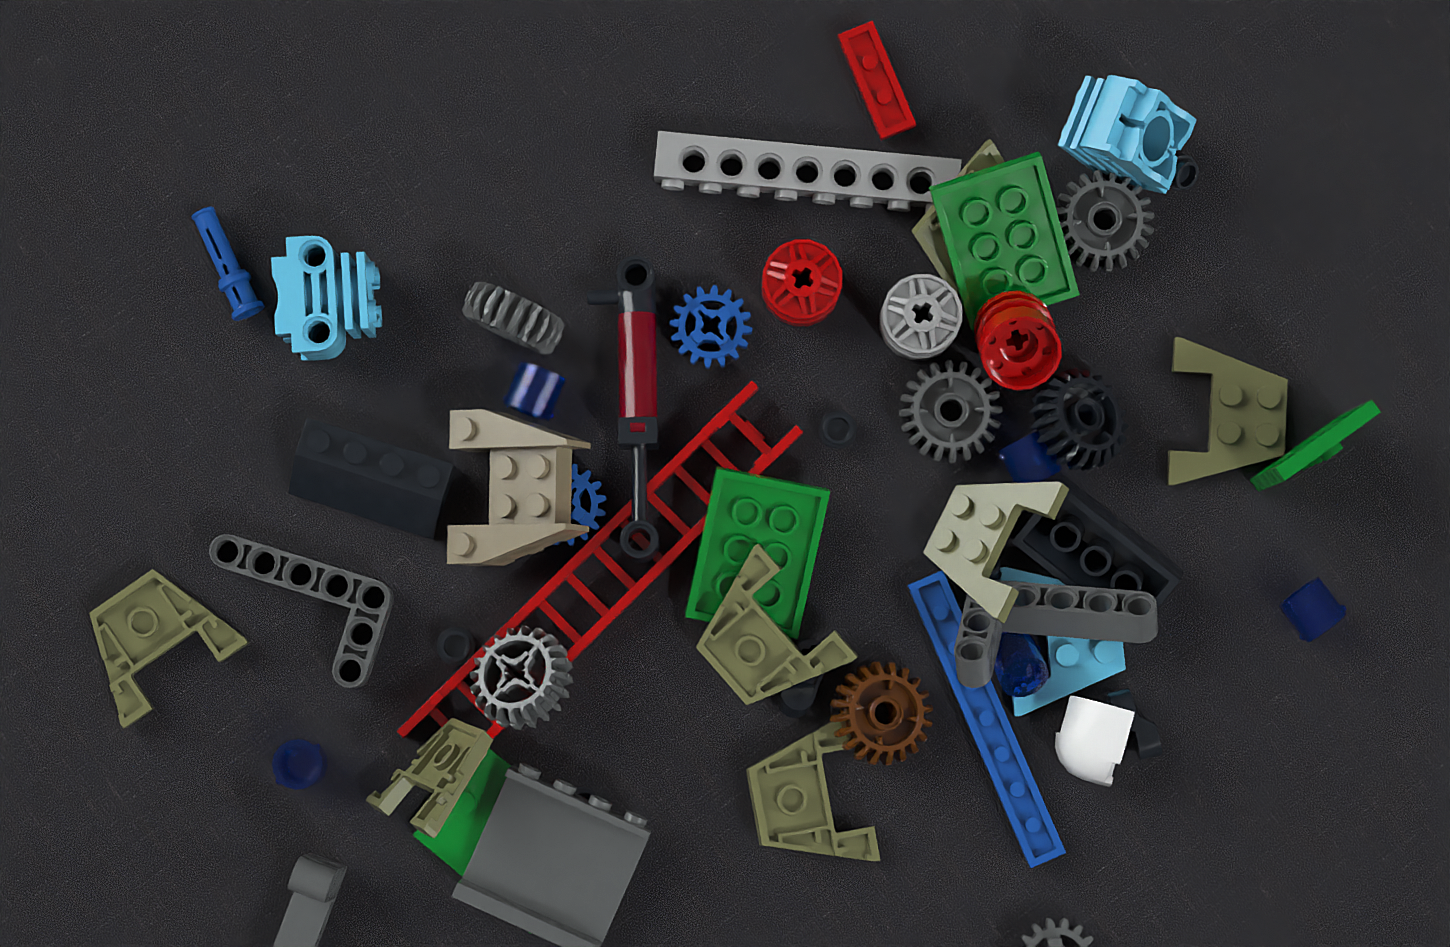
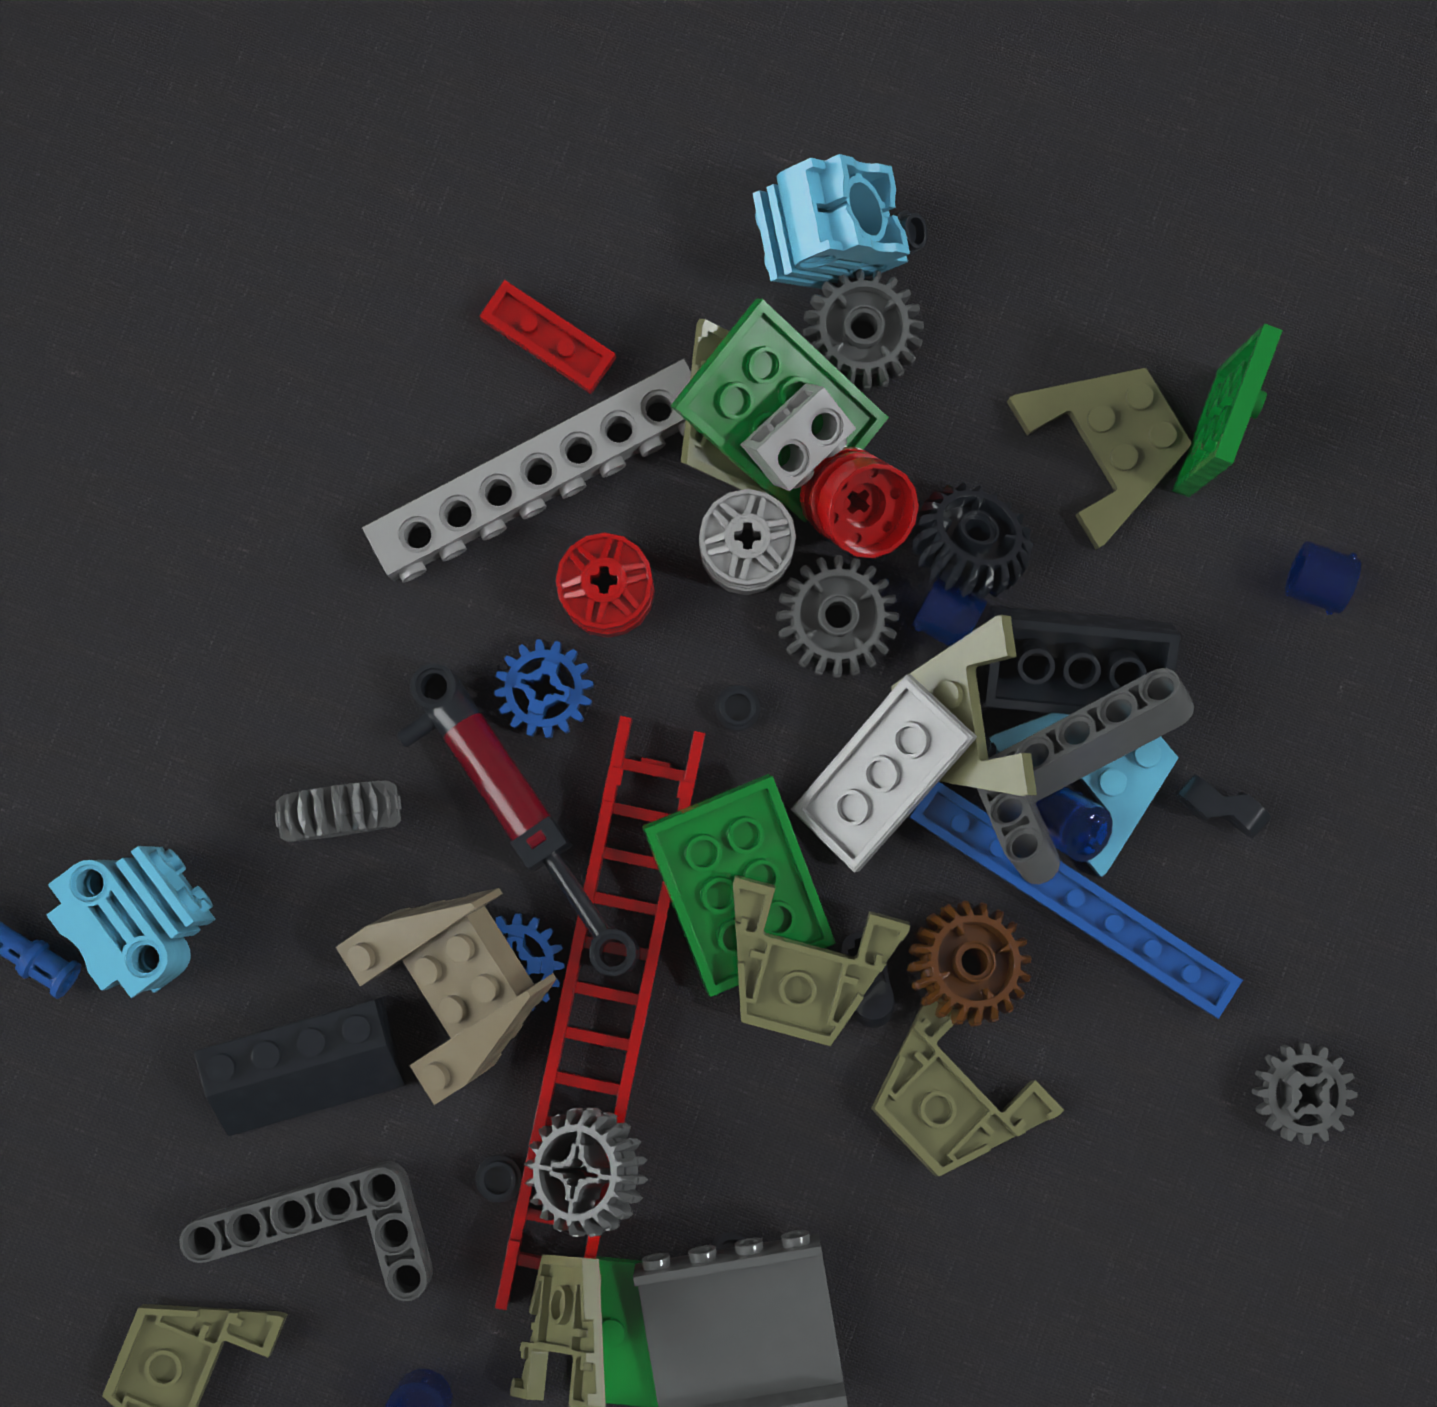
camera: 35 degrees left, 0 degrees up
(534, 391) = (409, 870): clear blue piece -> none
(908, 540) = (883, 773): none -> light grey tile
(1004, 257) = (792, 427): none -> light grey brick
(1092, 739) = (1197, 849): white brick -> none

